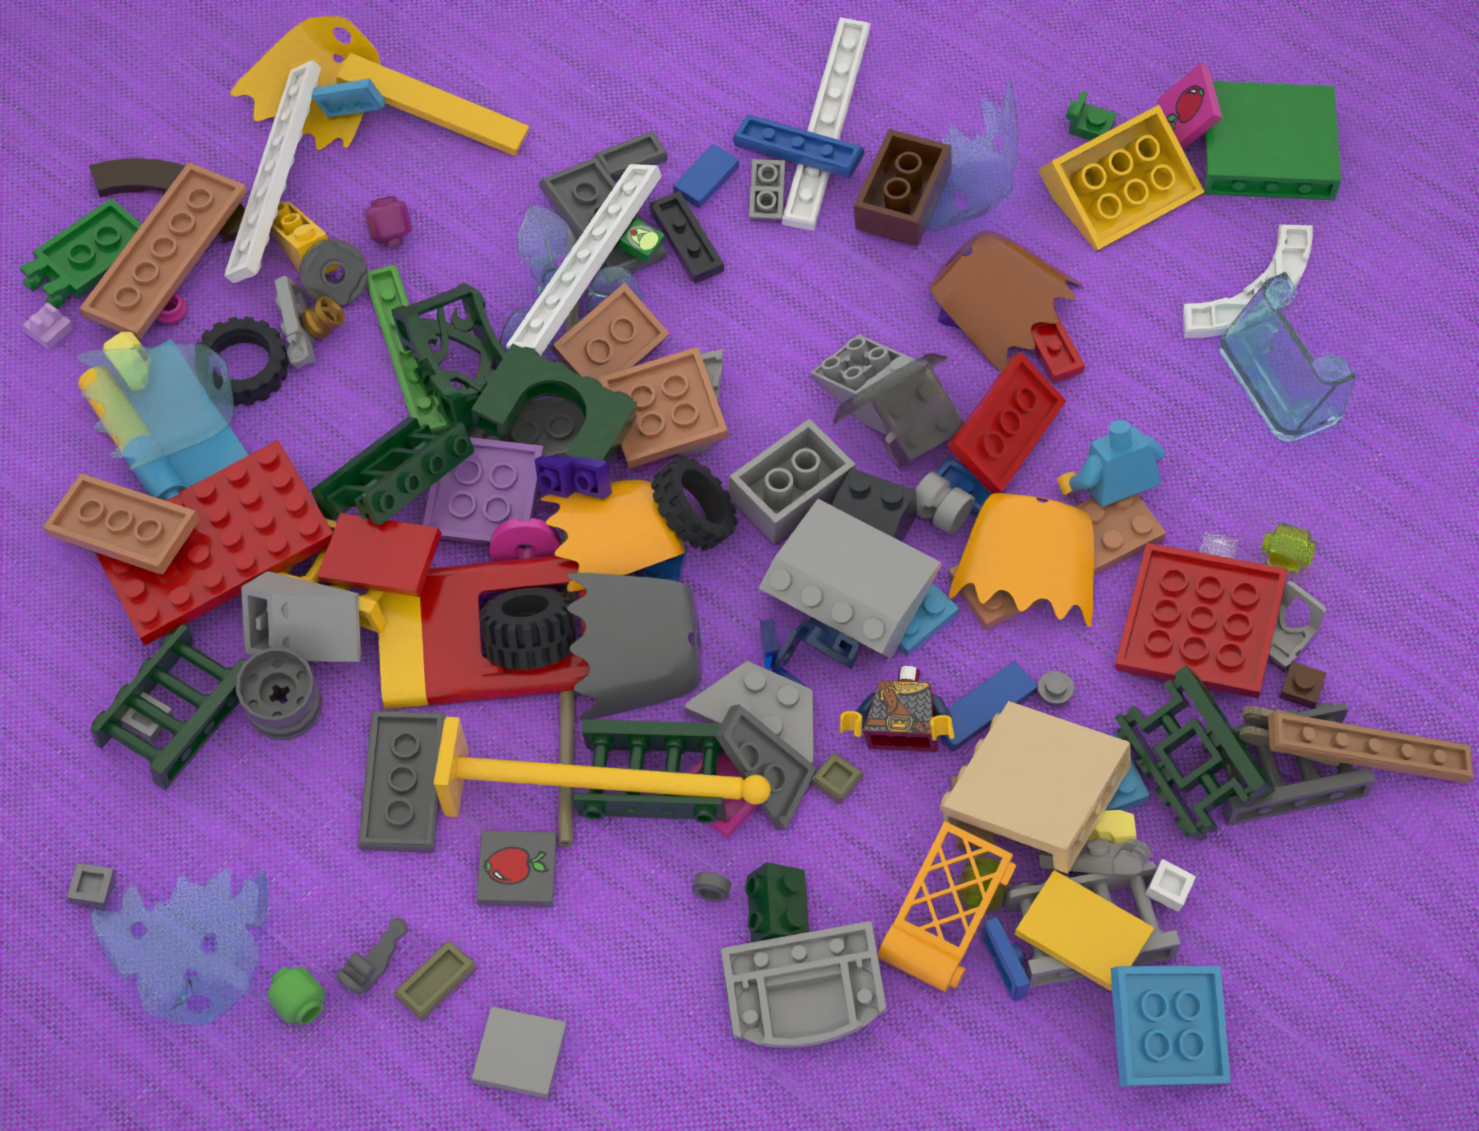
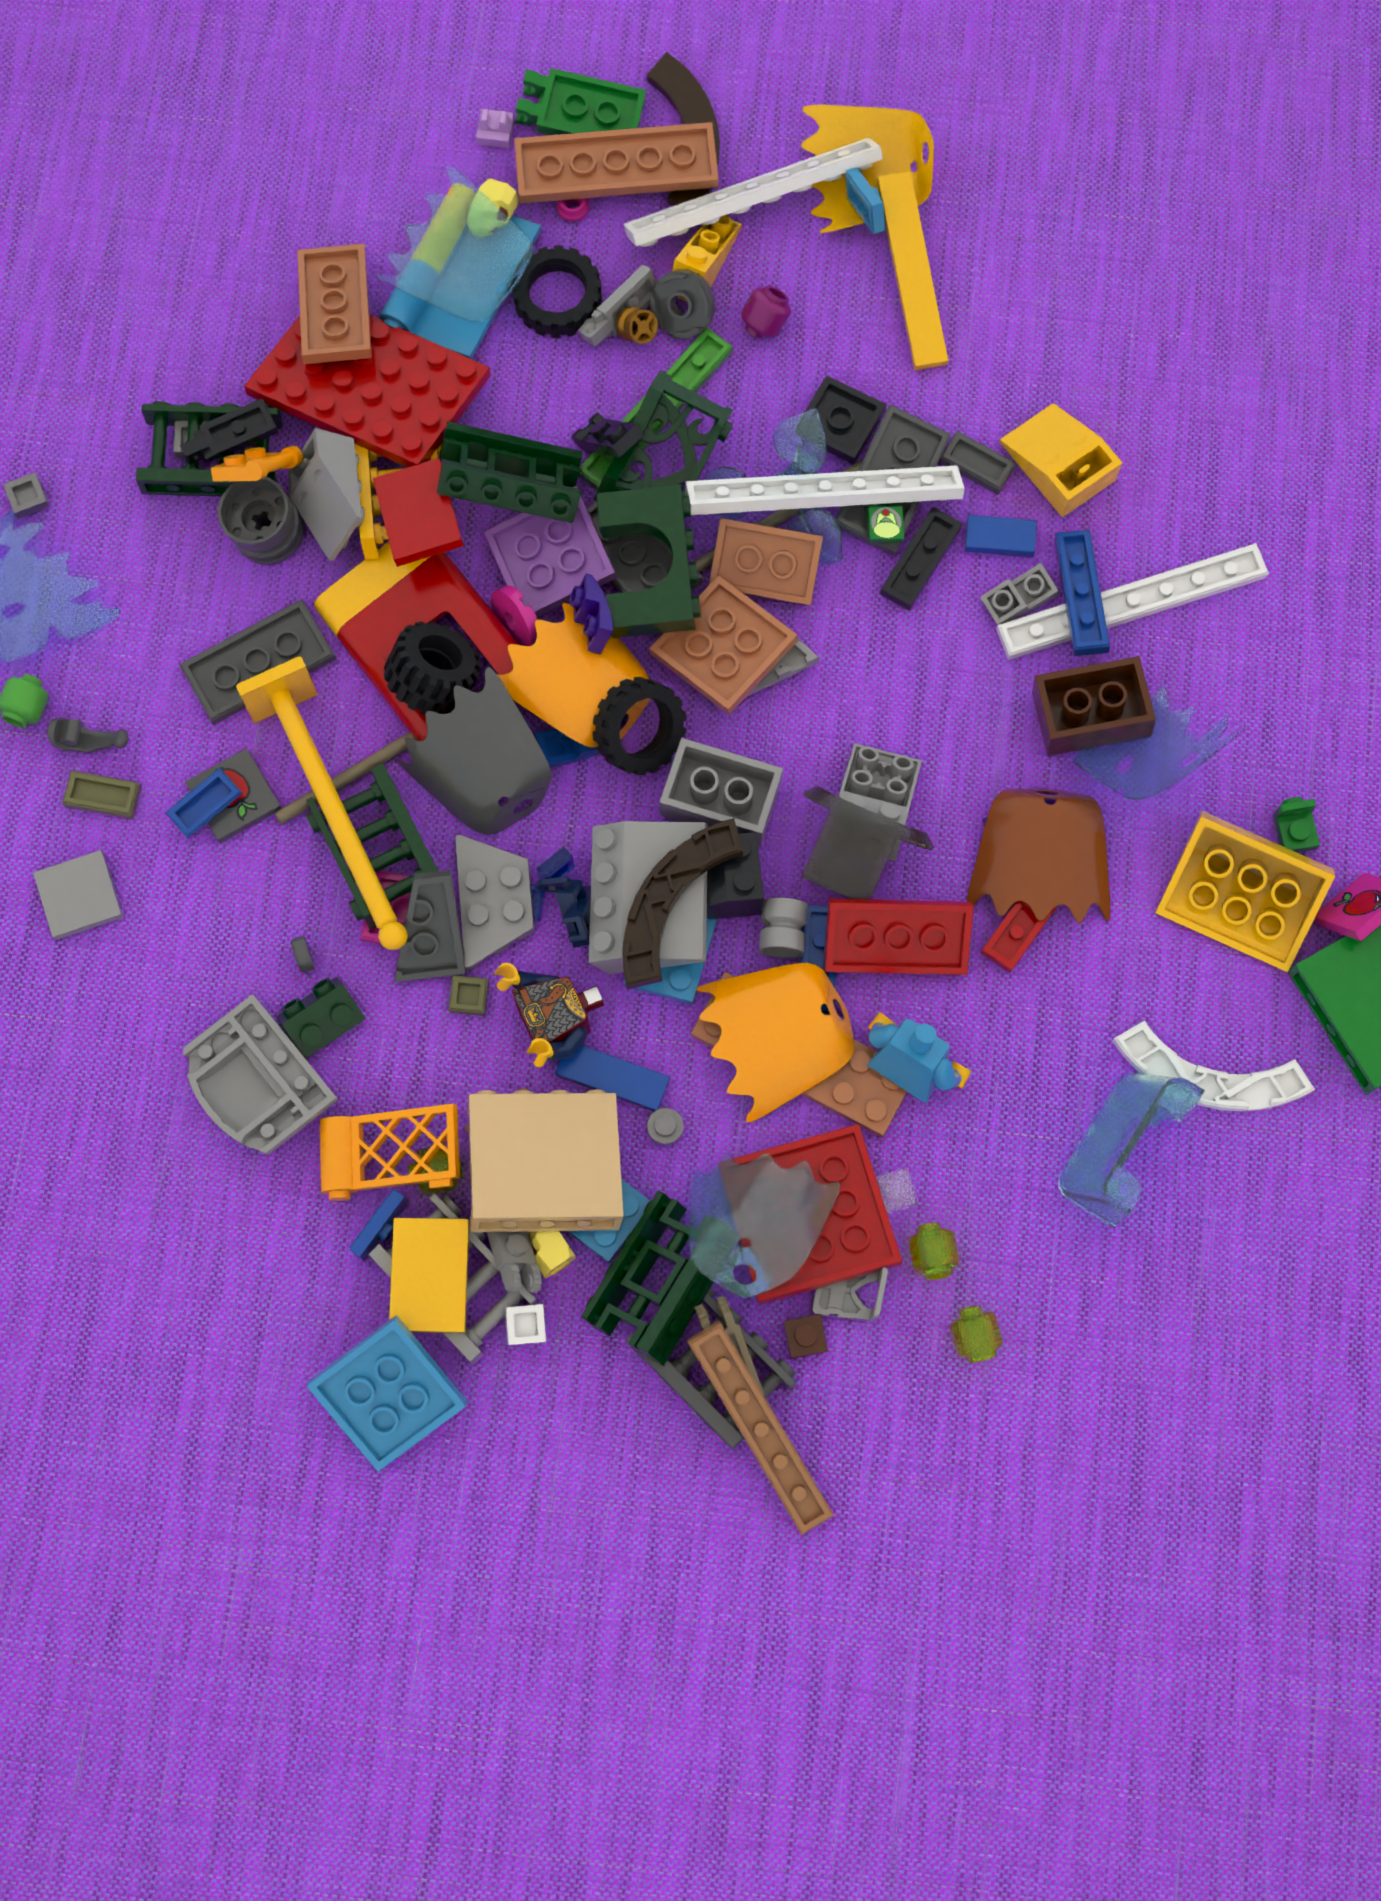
camera: 60 degrees right, 15 degrees up
(178, 670) = (230, 433): none -> black hinge
(232, 661) = (255, 464): none -> light orange plate
(413, 387) = (607, 436): none -> black plate
(506, 217) = (846, 417): none -> black plate
(512, 889) = (203, 803): none -> blue tile
(674, 95) = (1062, 458): none -> yellow slope
(866, 563) = (662, 890): none -> dark brown tile
(1175, 654) = (760, 1202): none -> clear light blue piece
(1376, 557) = (976, 1334): none -> clear neon green head

